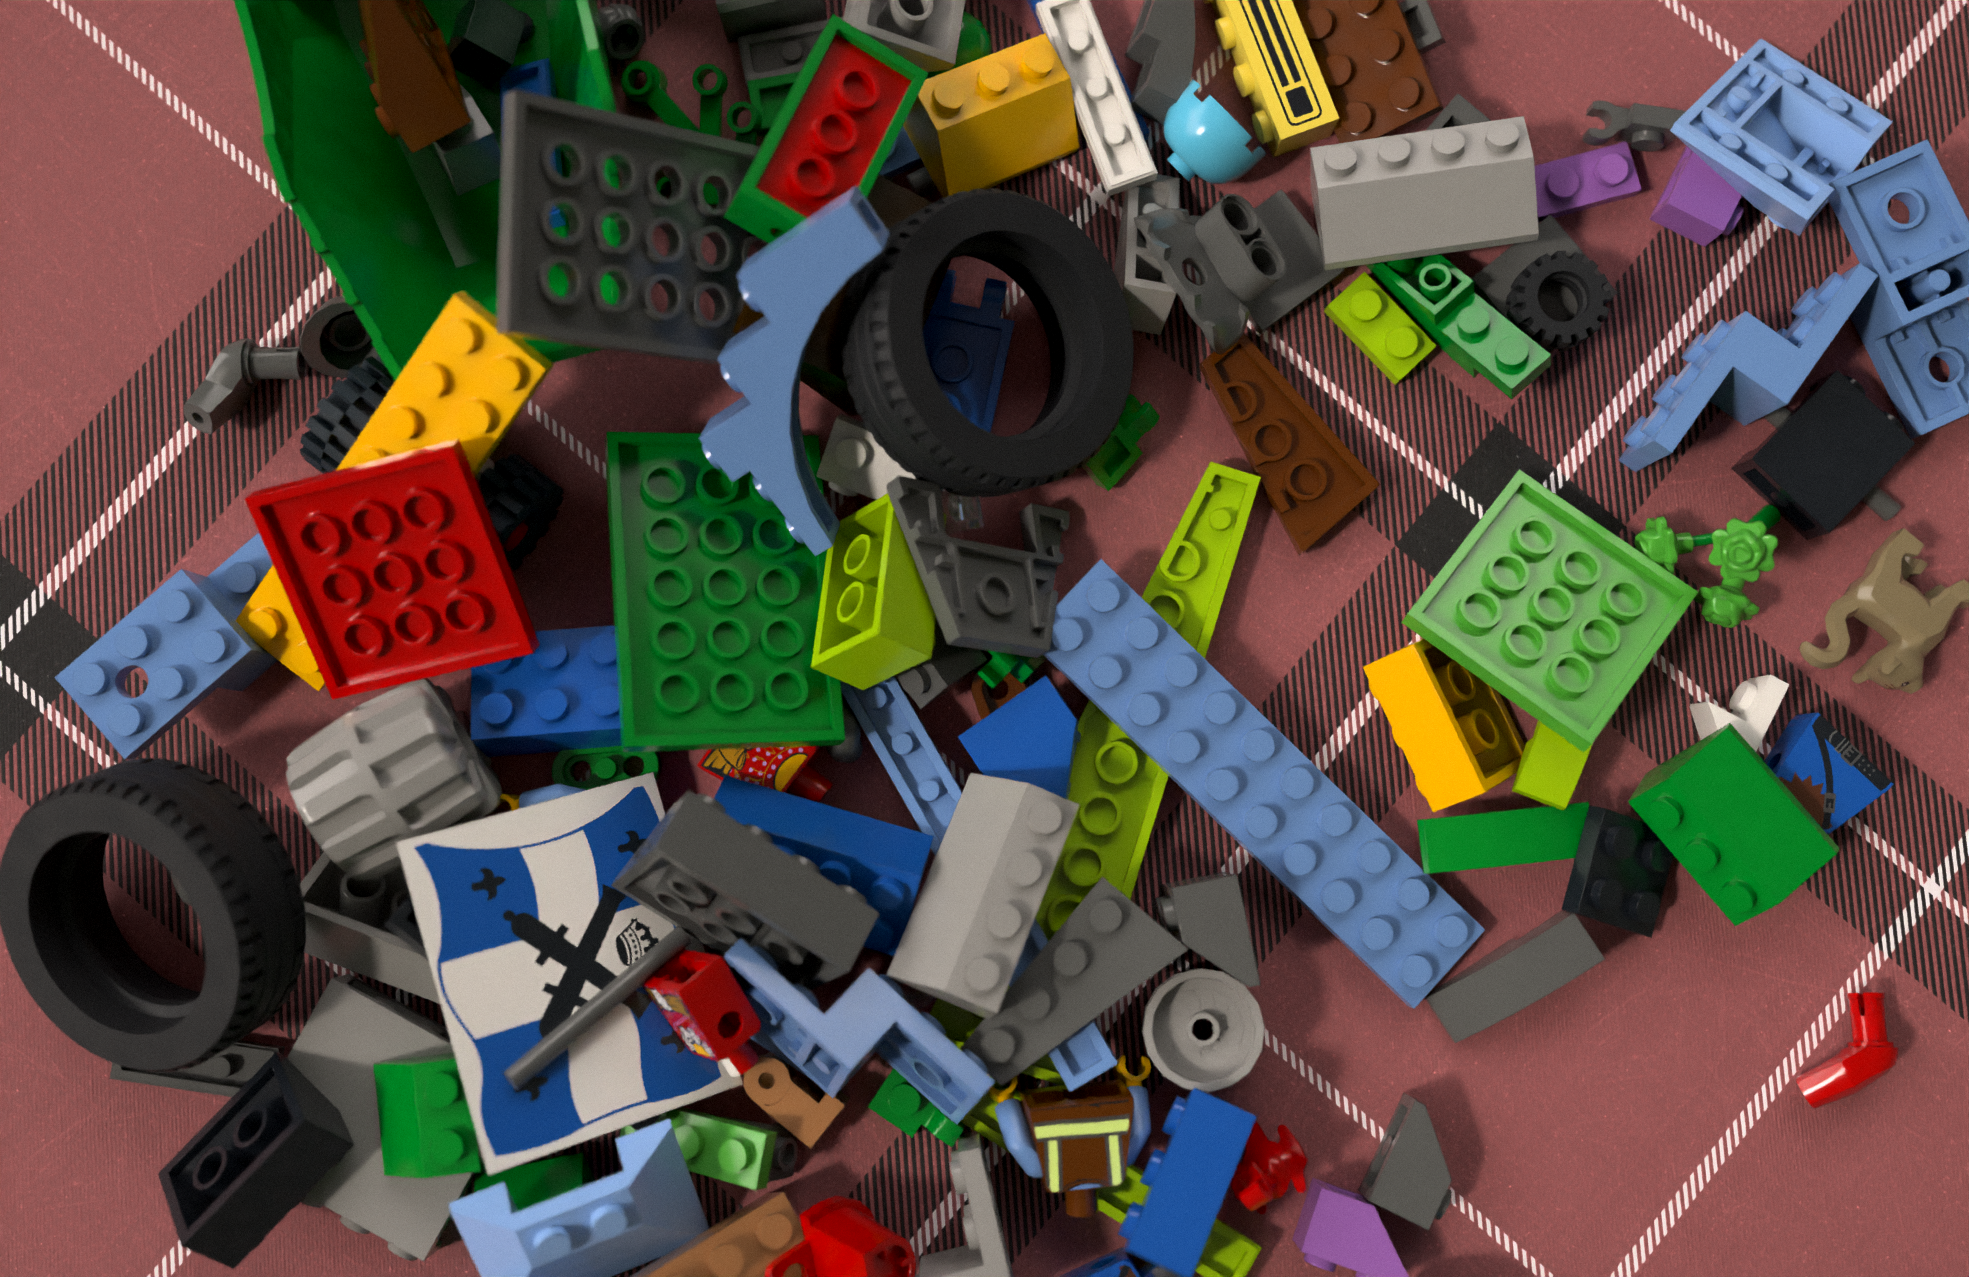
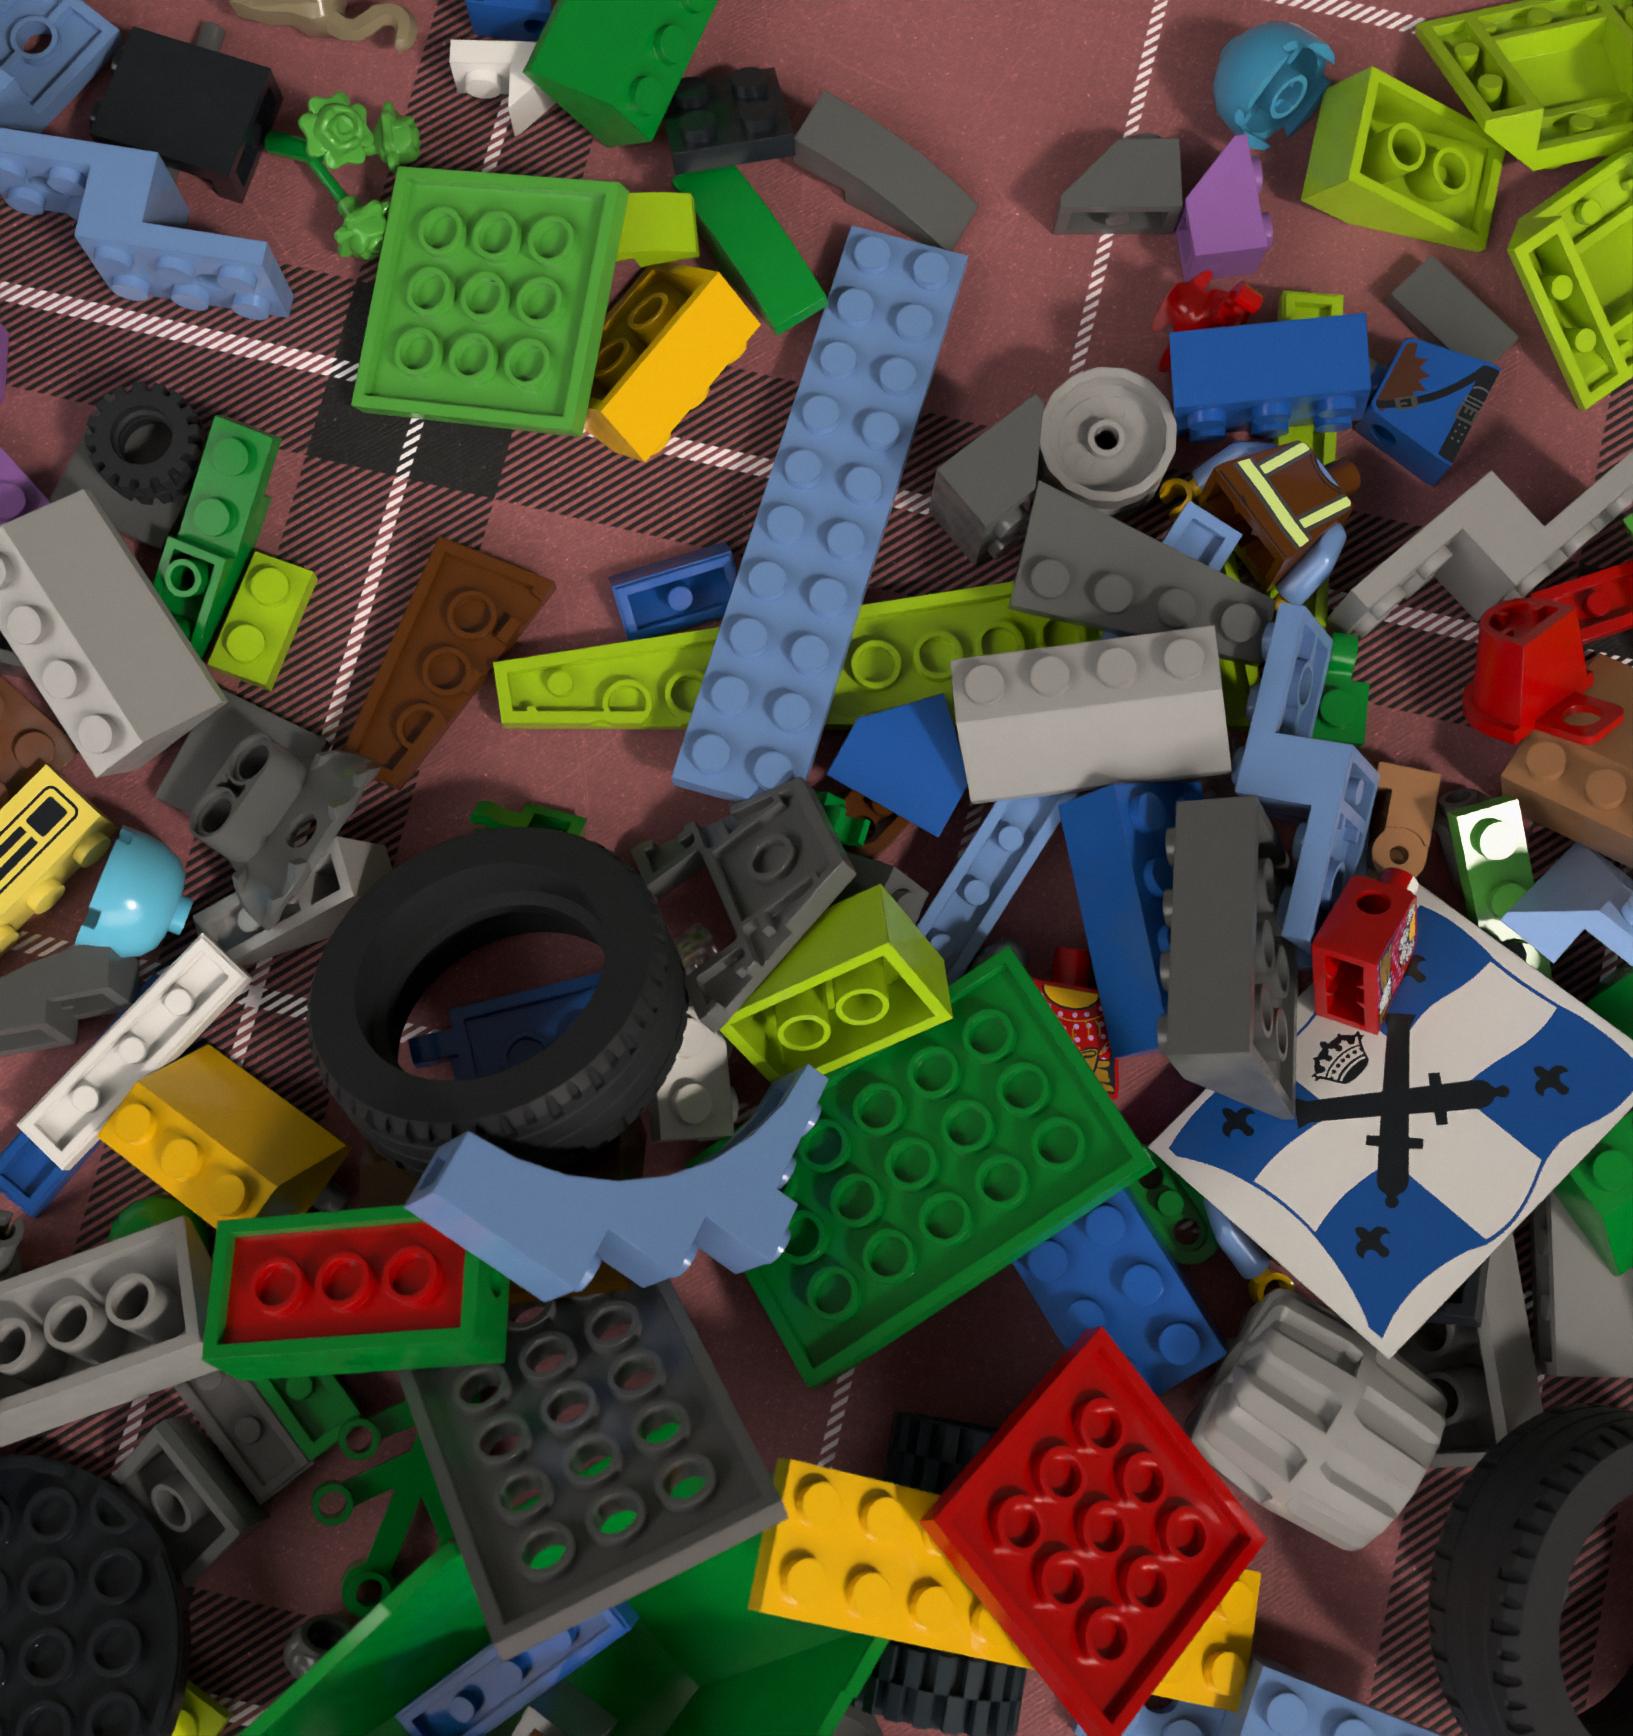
camera: 120 degrees left, 5 degrees down
(596, 1008) = (1432, 1057): dark grey bar -> none
(1253, 642) = (675, 592): none -> blue slope

